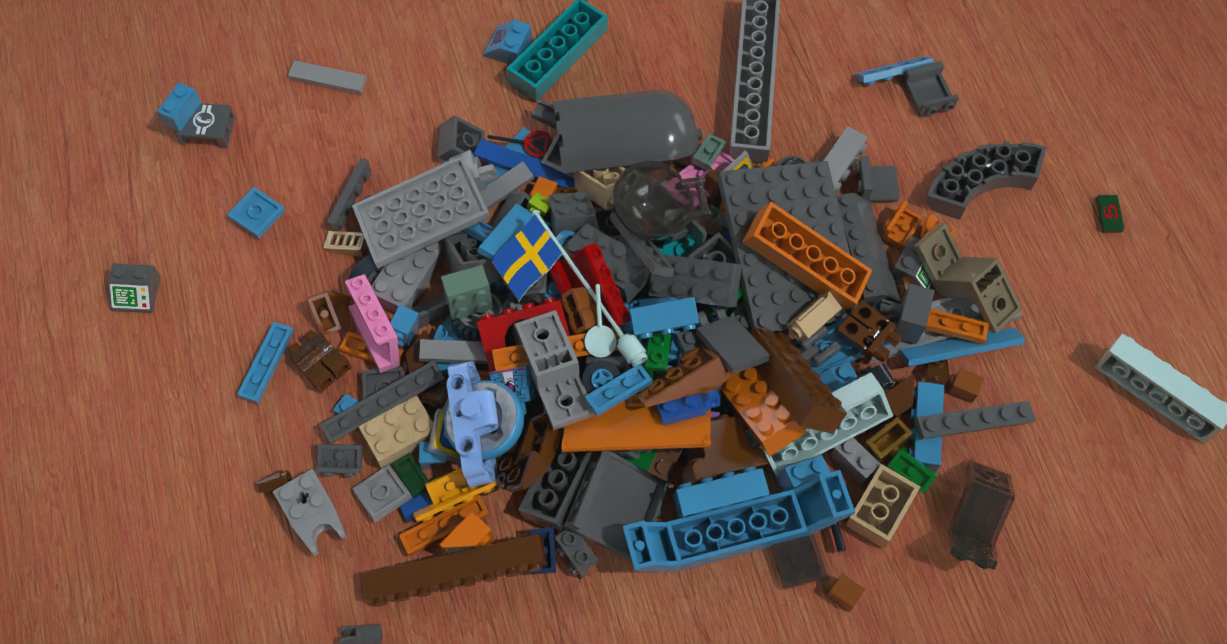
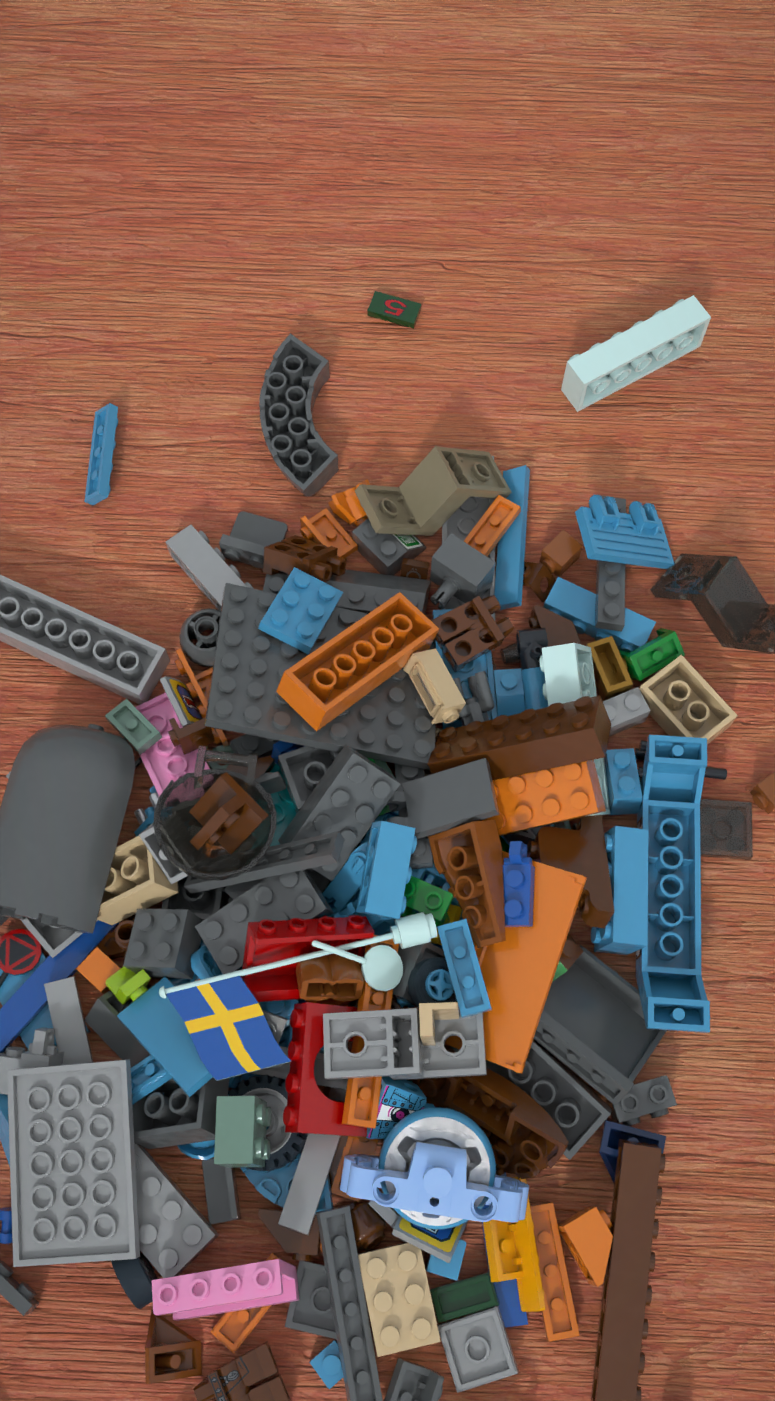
camera: 70 degrees left, 5 degrees up
(357, 250) = (77, 1271): tan slope -> none
(405, 324) = (244, 1242): dark azure brick -> none
(572, 373) = (434, 1011): none -> tan panel
(660, 205) = (226, 815): none -> reddish brown bracket
(830, 213) = (300, 610): none -> dark azure plate
(871, 211) = (304, 555): none -> reddish brown hips
(929, 89) = (148, 428): dark grey panel -> none
(995, 418) = (624, 537): none -> dark azure hinge

